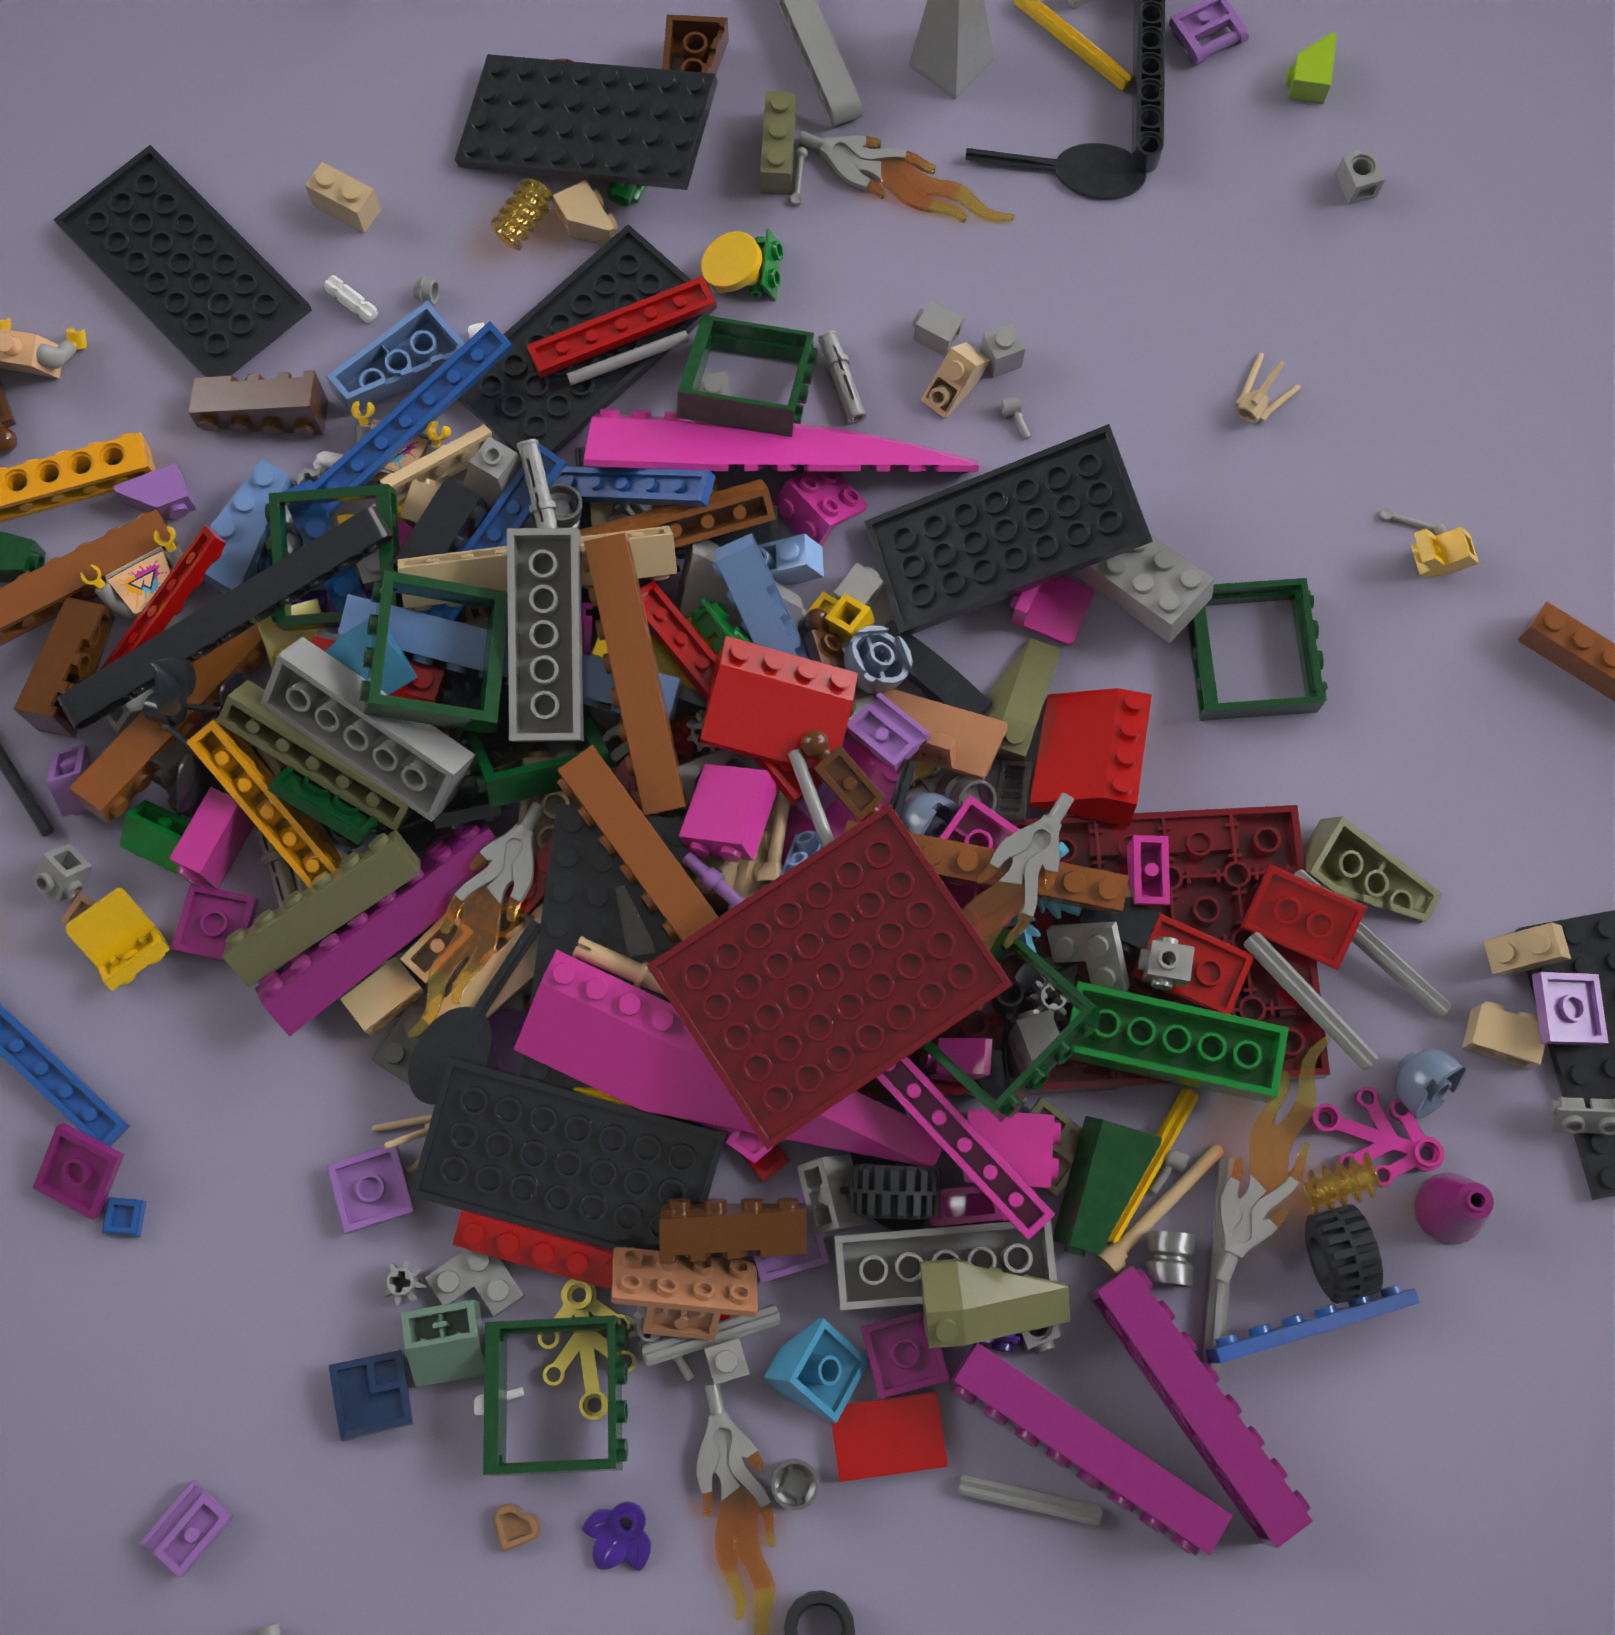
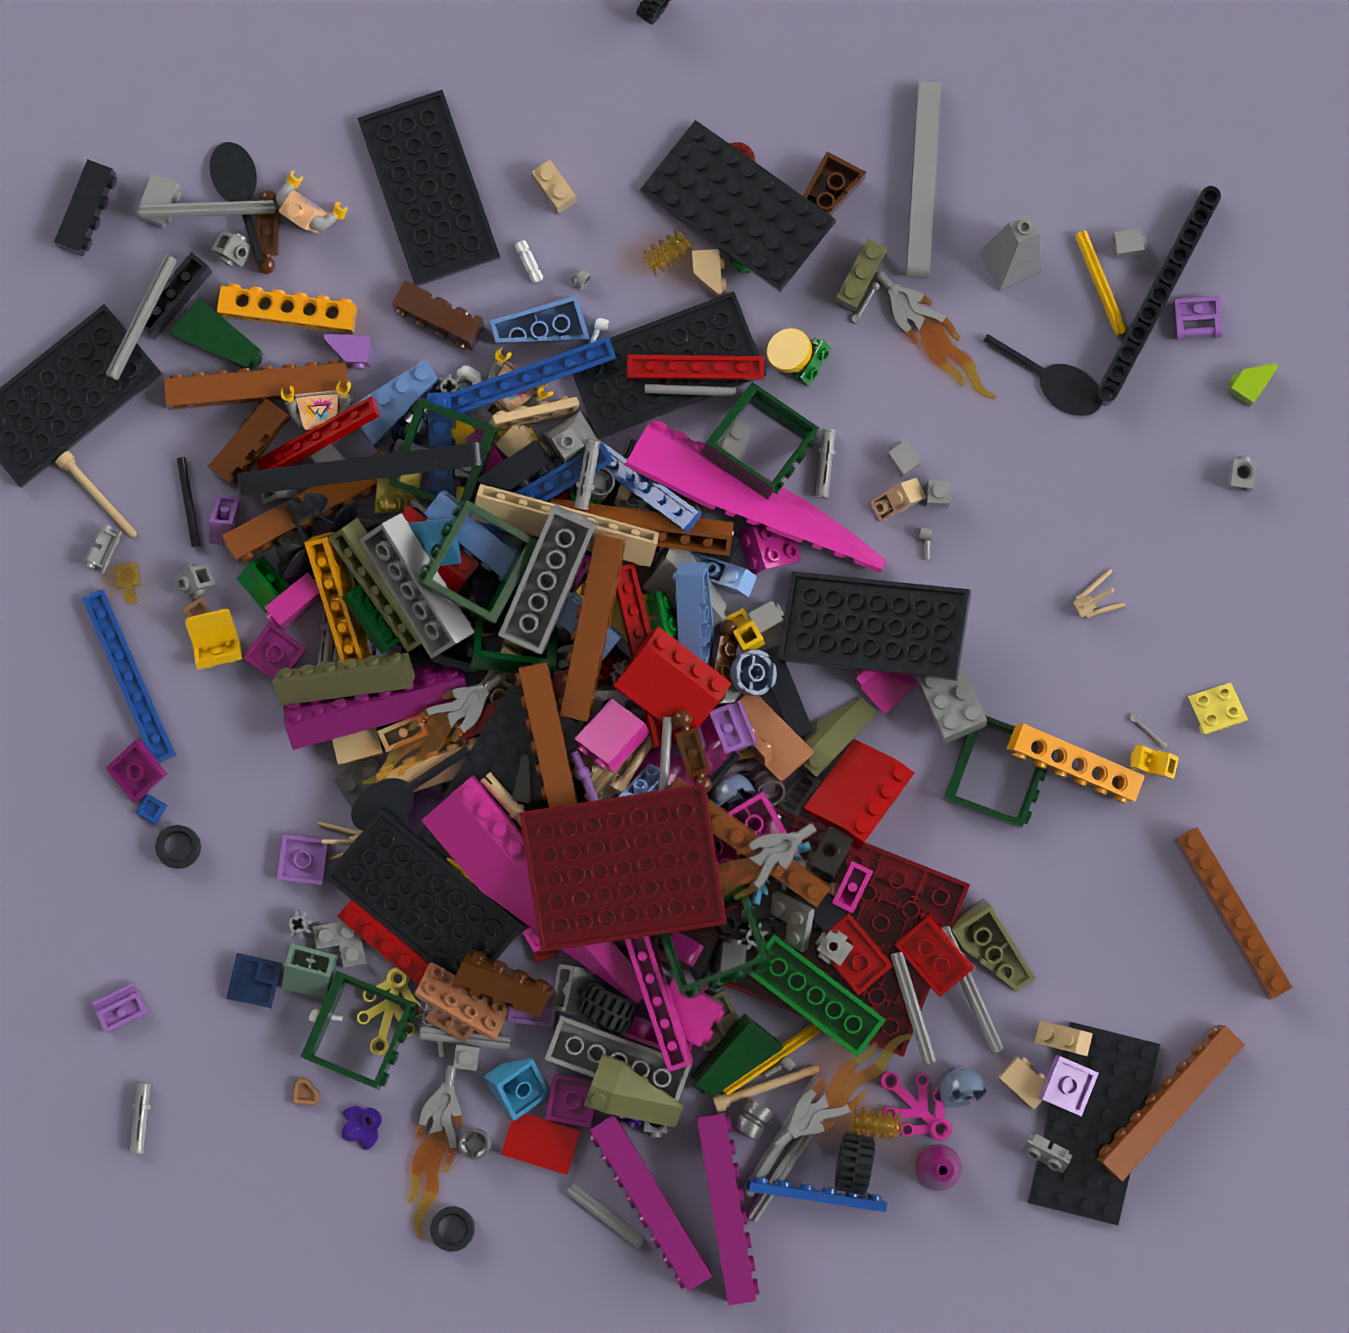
camera: 25 degrees right, 10 degrees up
(155, 1245) = (160, 846): none -> black tyre
(1097, 827) = (835, 842): none -> clear smoke brick
(1243, 1320) = (779, 1174): none -> light grey axle
(1349, 590) = (1128, 781): none -> light orange brick
(1484, 456) = (1217, 708): none -> light yellow hinge

